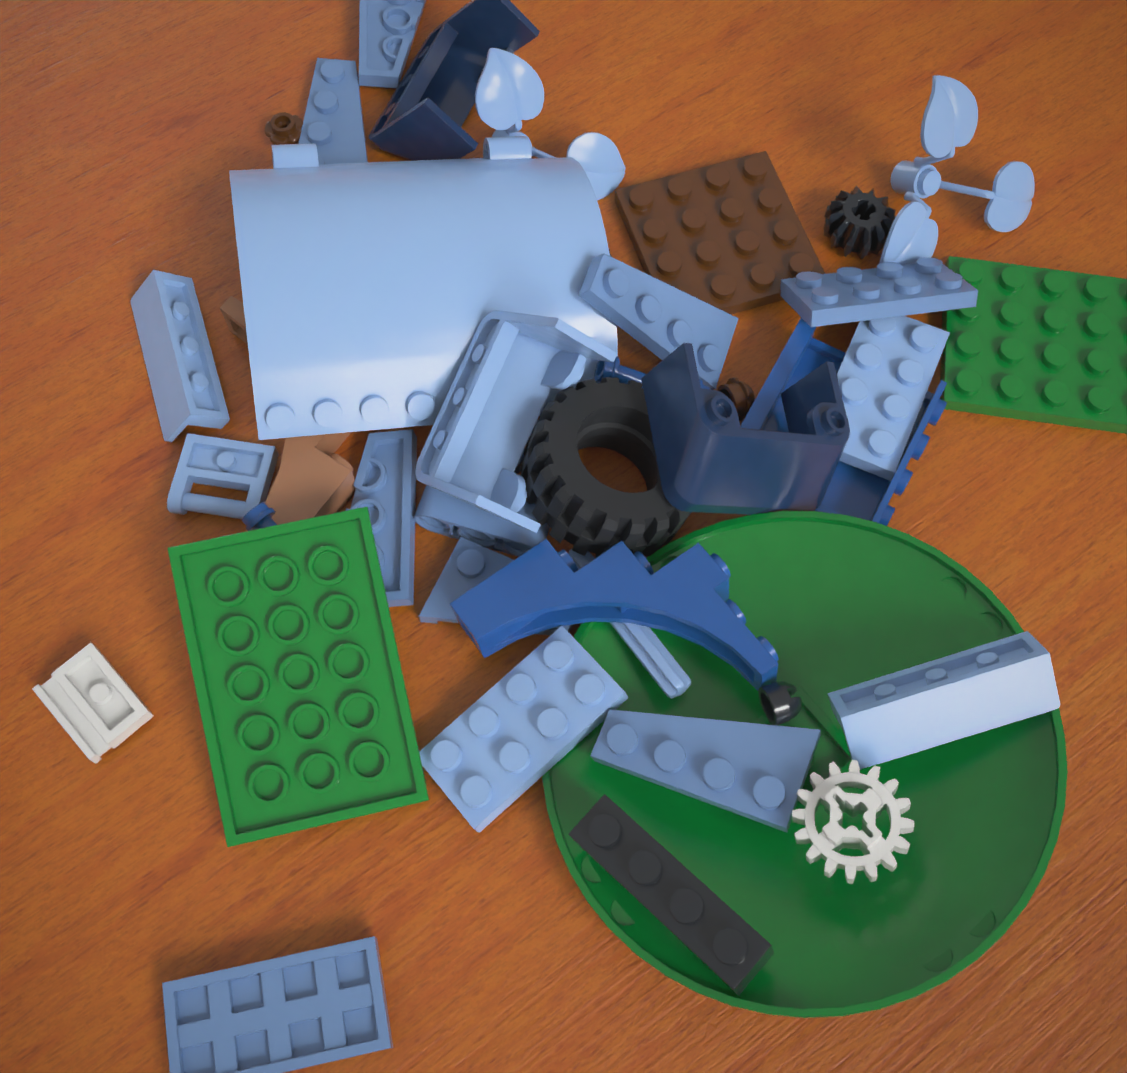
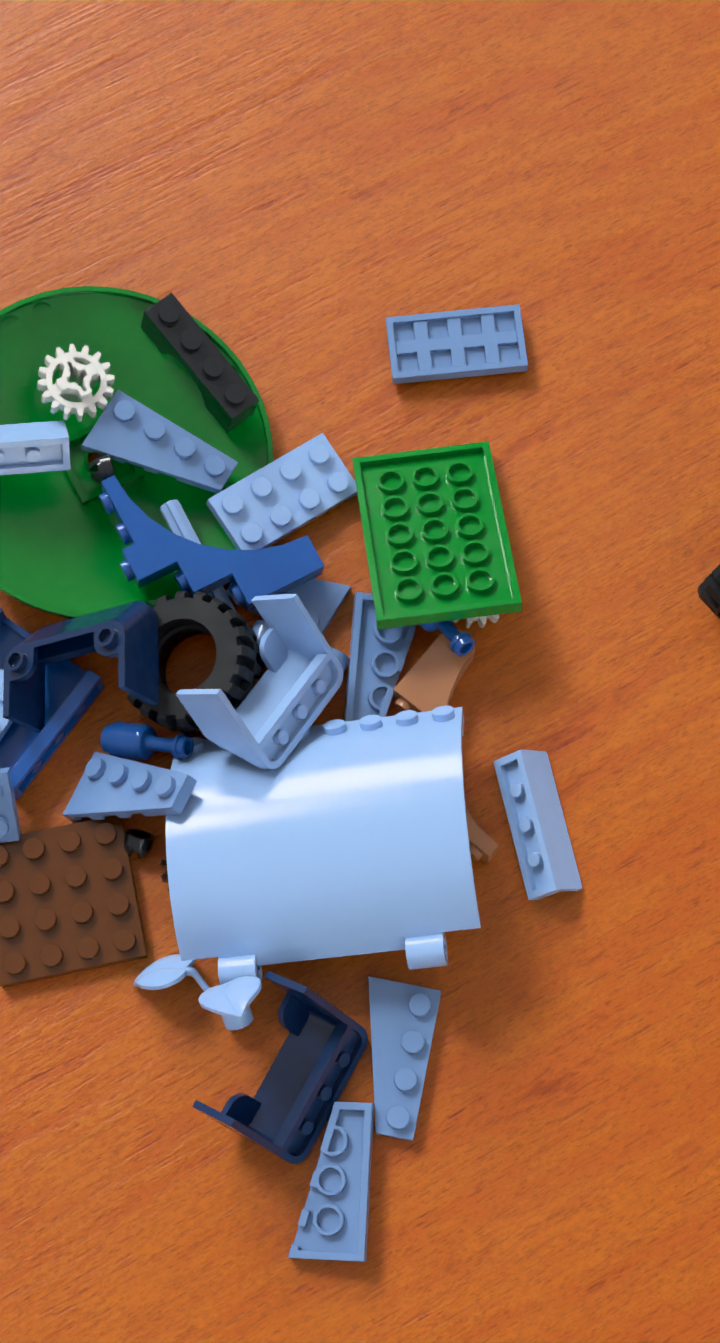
camera: 170 degrees left, 5 degrees up
(93, 702) = (586, 546): white plate -> none
(224, 465) = (496, 719): light blue plate -> none
(284, 129) = (450, 1066): reddish brown plate -> none
(740, 394) = (80, 738): reddish brown plate -> none

